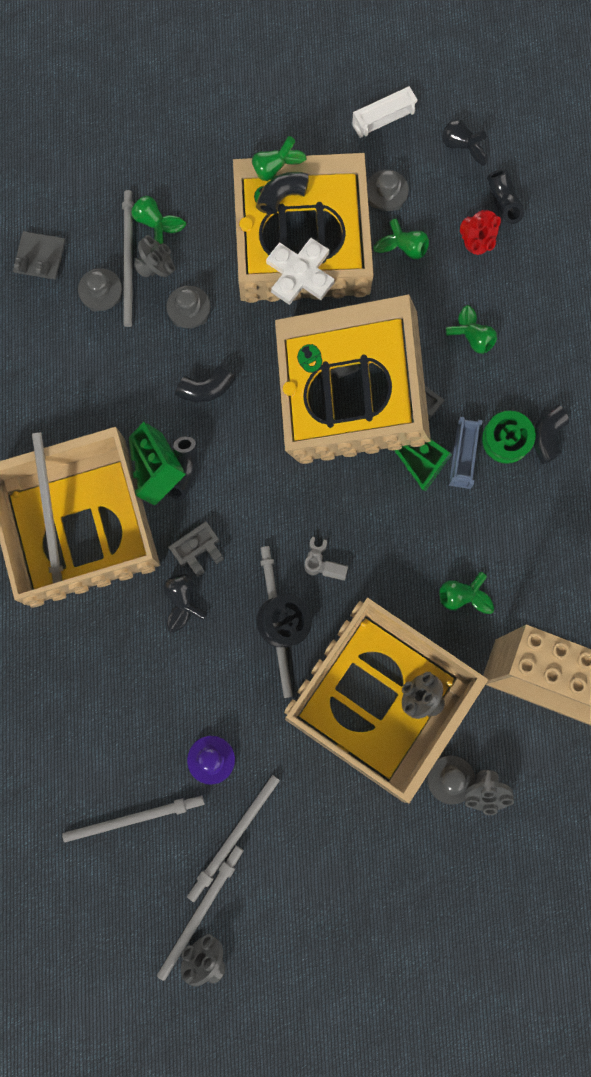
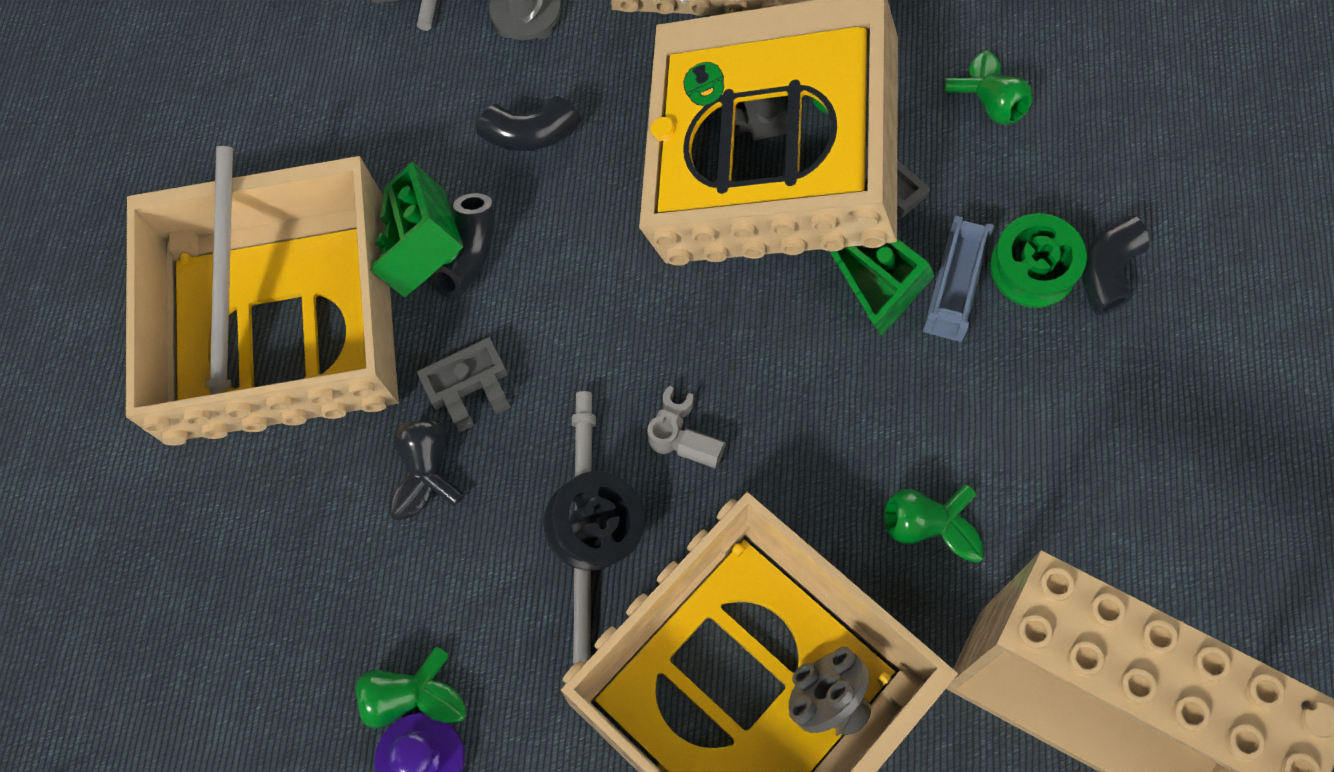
camera: 15 degrees right, 10 degrees down
(189, 729) = (388, 695): none -> green piece

